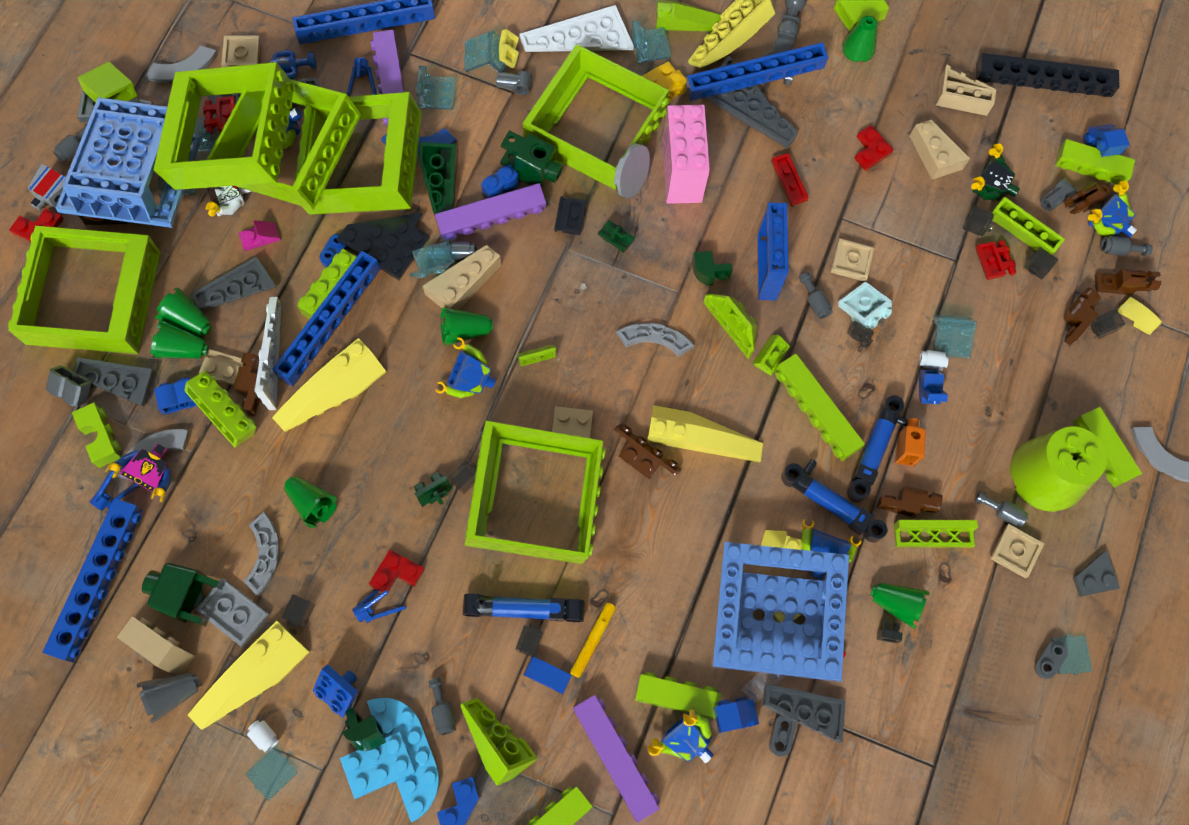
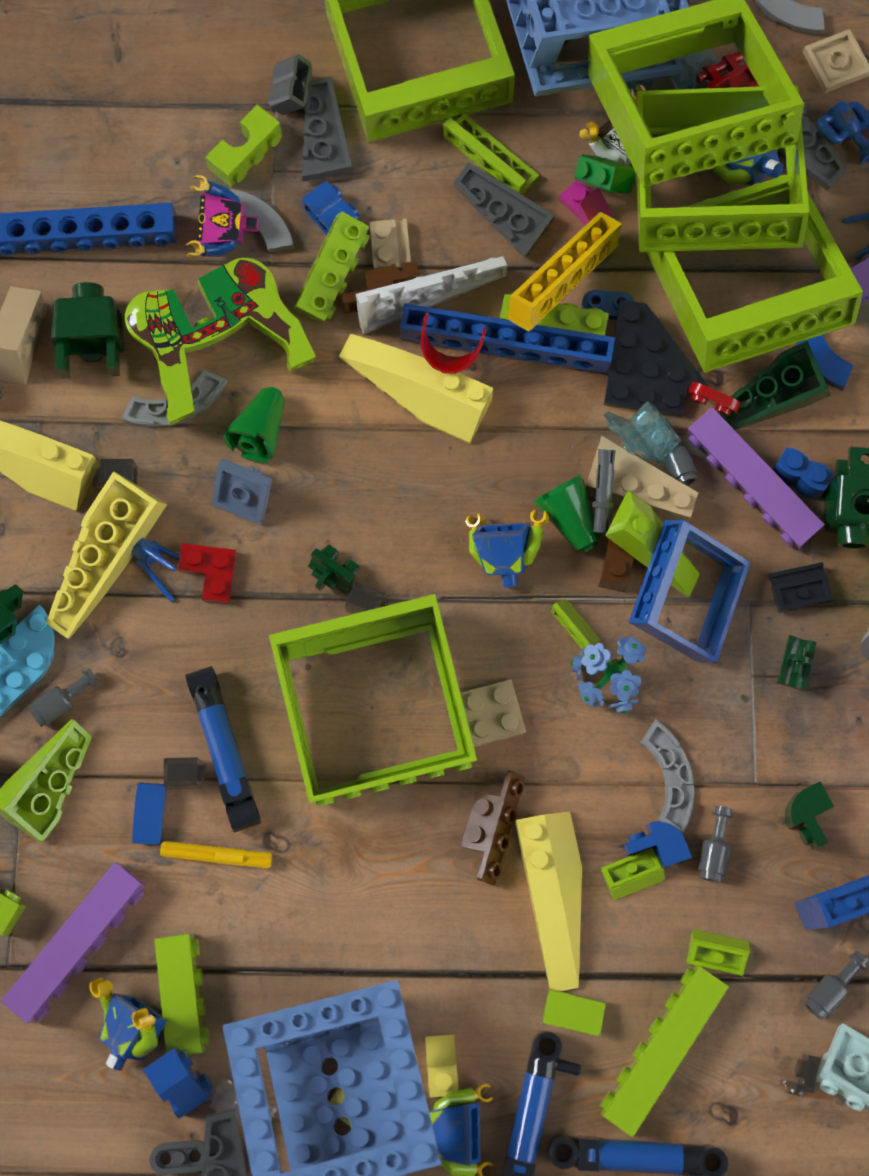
camera: 75 degrees right, 5 degrees up
(101, 498) = (170, 190): blue plant -> none
(177, 343) = (395, 177): green cone -> none
(183, 313) = (436, 166): green cone -> none
(192, 282) = (488, 160): none -> lime fence
(209, 479) = (235, 296): none -> animal
(232, 613) = (91, 402): light grey tile -> none
(246, 212) = (605, 174): none -> green brick
(302, 261) = (563, 271): none -> yellow brick
(330, 354) = (446, 363): none -> red piece
(336, 689) = (37, 562): blue plate -> none
(347, 640) = (108, 533): none -> light yellow wedge
(351, 528) = (241, 491): none -> sand blue tile
(425, 214) = (704, 394): none -> red plate
(461, 297) = (604, 490): none -> dark grey pin
(506, 285) = (637, 532): none -> lime wedge
(506, 310) = (616, 568): none -> reddish brown brick
(535, 286) = (658, 580): none -> blue window
(570, 342) = (622, 680): none -> medium blue plant
(695, 355) = (666, 840): none -> blue brick
(706, 383) = (633, 873): none -> lime slope
(711, 329) = (716, 852): none -> dark grey piece
(734, 320) = (744, 879): lime wedge -> none
(777, 451) = (574, 1012): none -> lime slope

